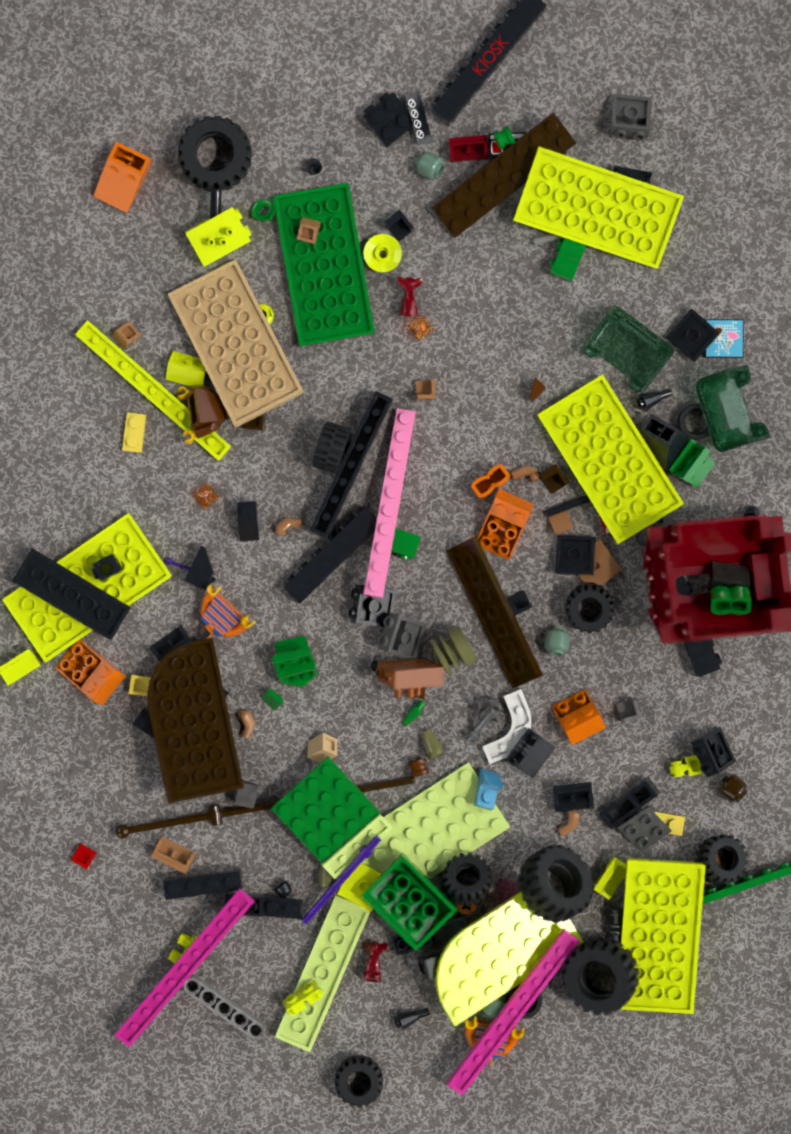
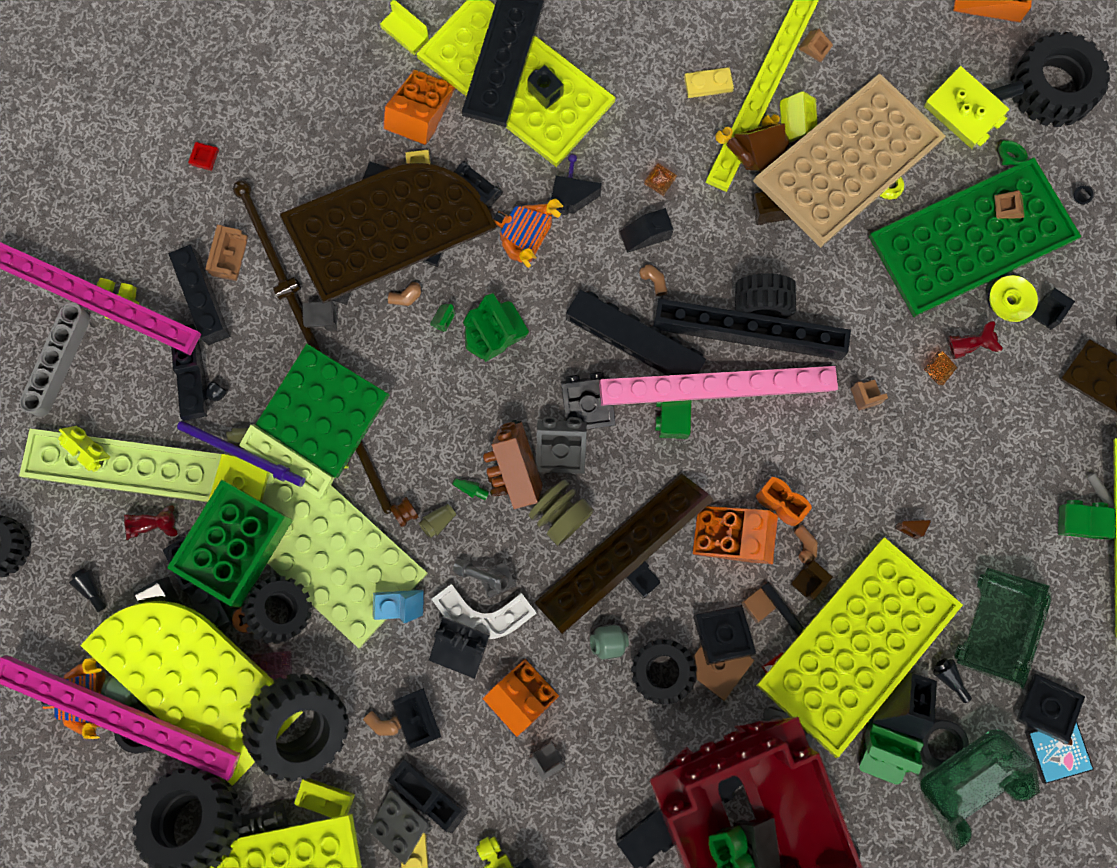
camera: 70 degrees right, 10 degrees down
(321, 747) = (401, 390): tan panel -> none

